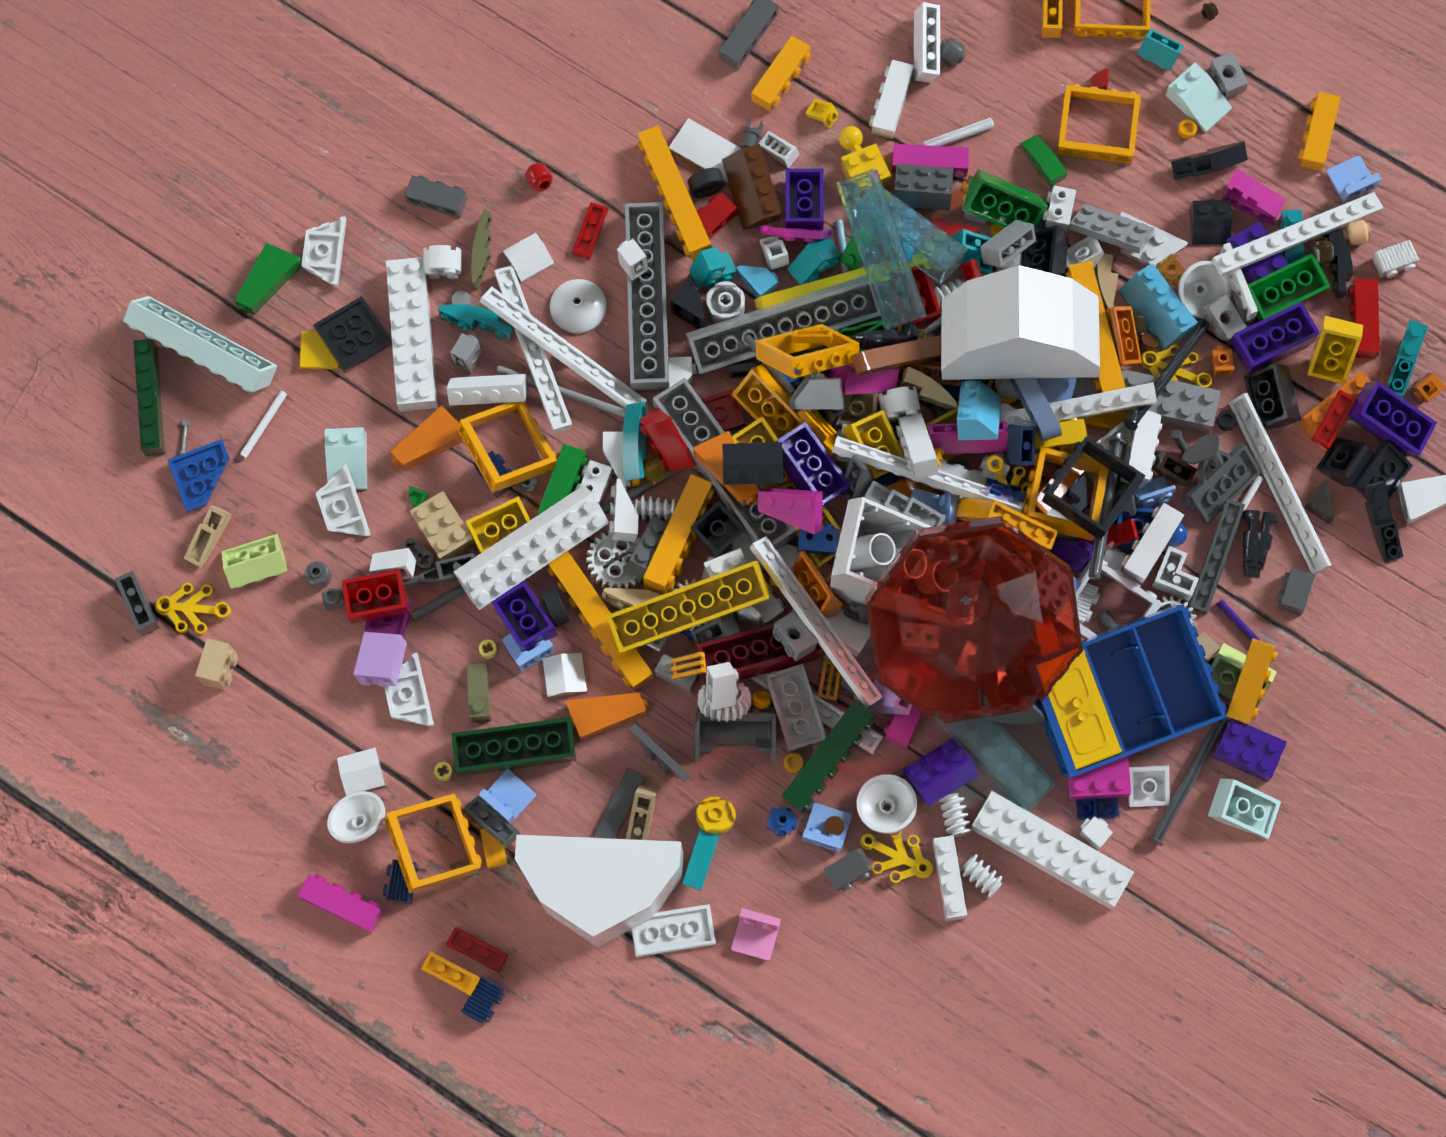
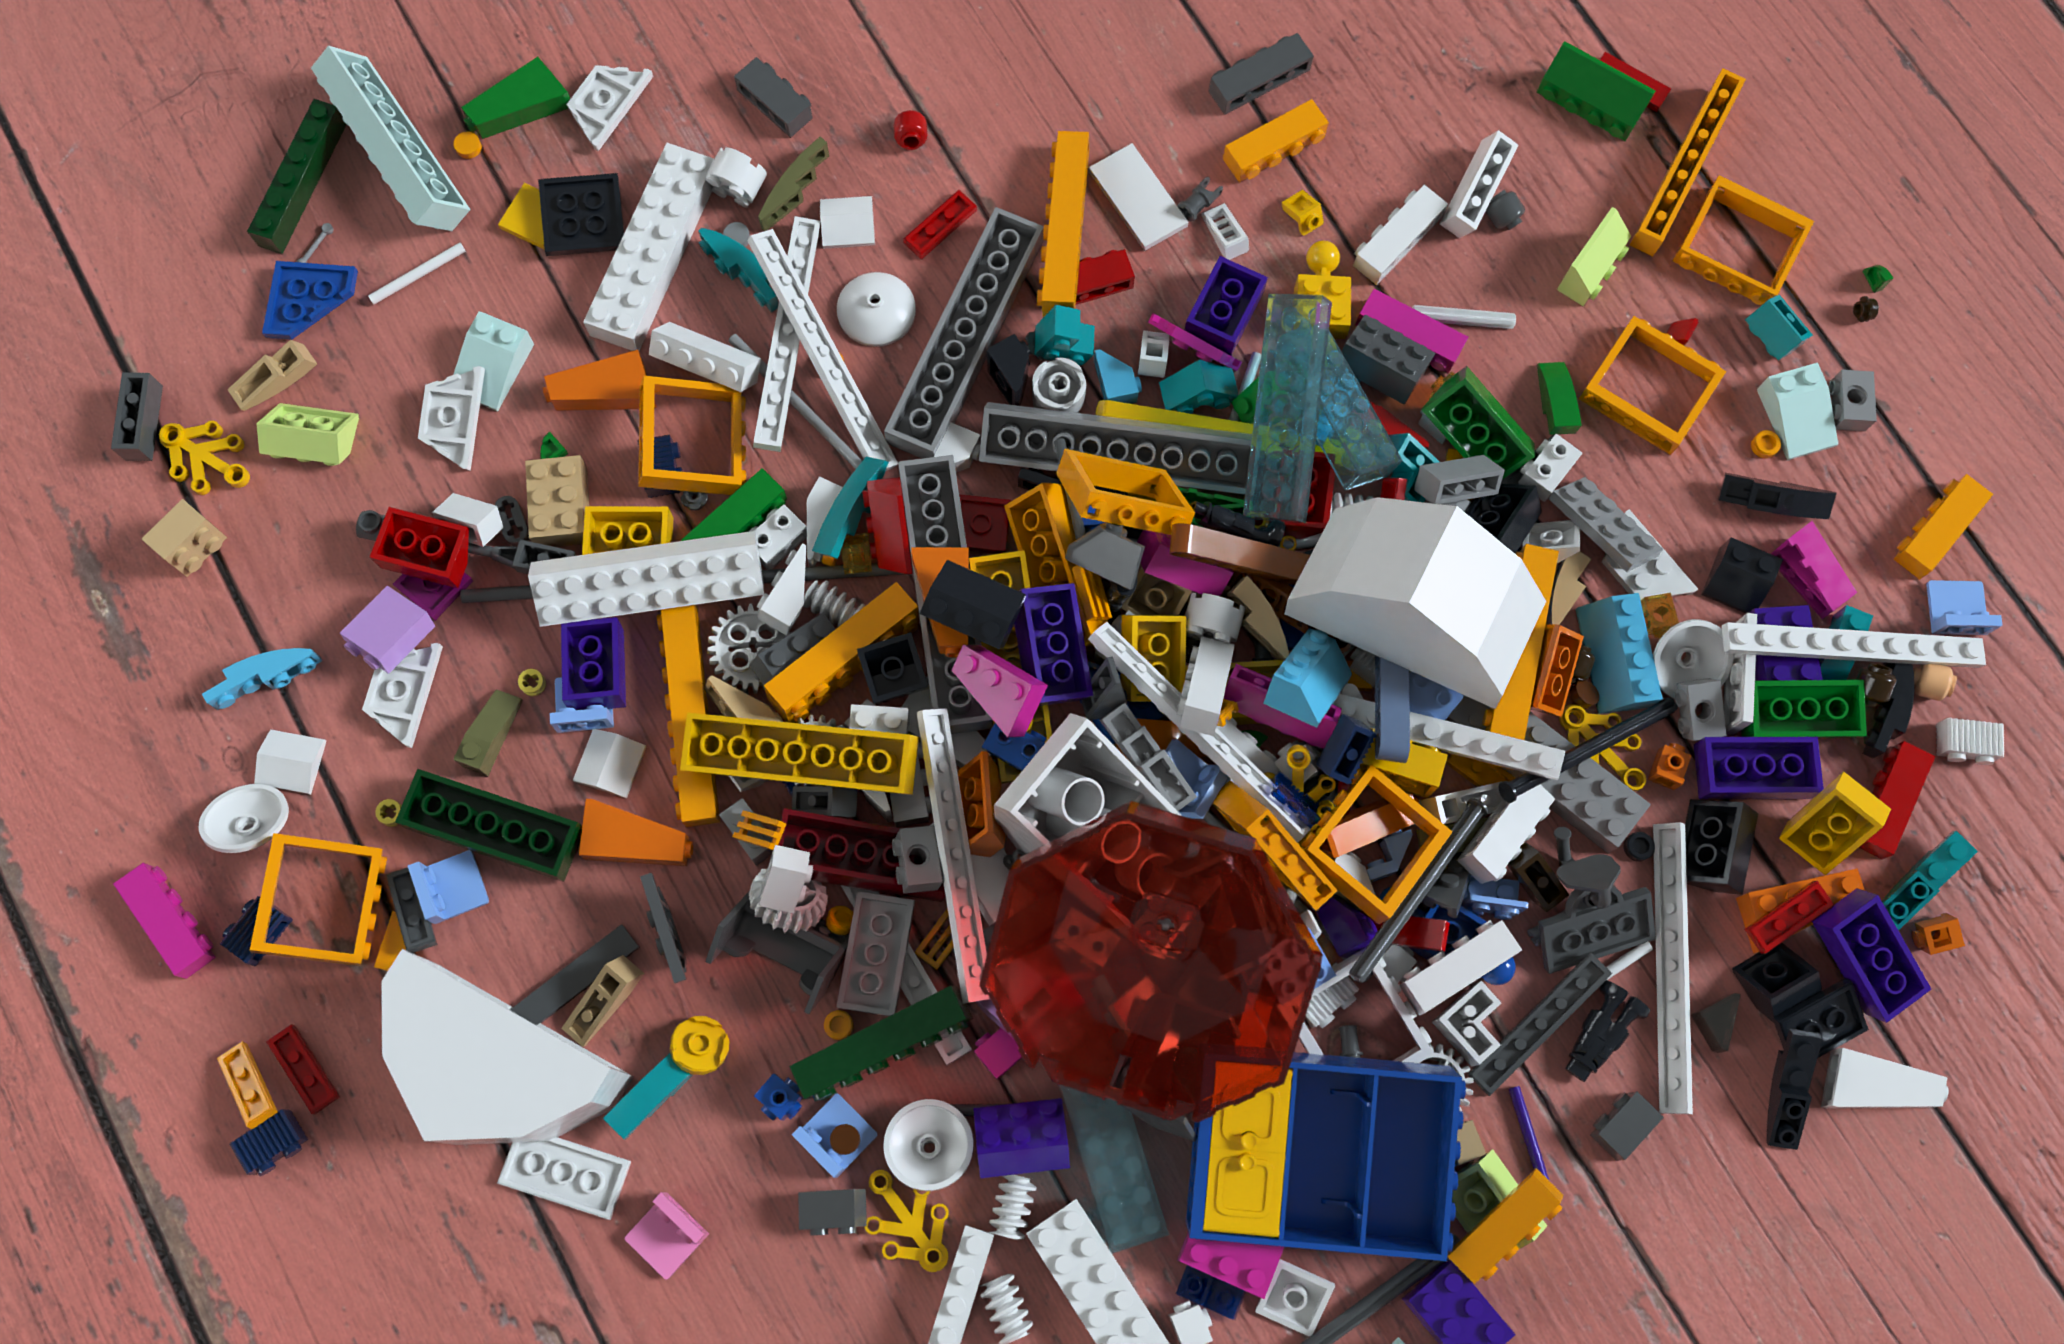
camera: 20 degrees right, 0 degrees up
(248, 323) = (467, 145): none -> light orange tile
(316, 719) = (271, 668): none -> medium azure slope
(318, 575) = (373, 487): dark grey head -> none
(466, 352) = (704, 299): light grey brick -> none
(555, 607) = (639, 669): black tyre -> none
(632, 259) = (964, 275): white brick -> none
(706, 182) = (1112, 228): black tyre -> none
(751, 187) = (1166, 261): reddish brown slope -> none
(812, 336) = (1141, 477): light orange tile -> none
(1025, 58) = (1596, 259): none -> yellowish green slope
(1108, 460) = (1454, 828): black window -> none

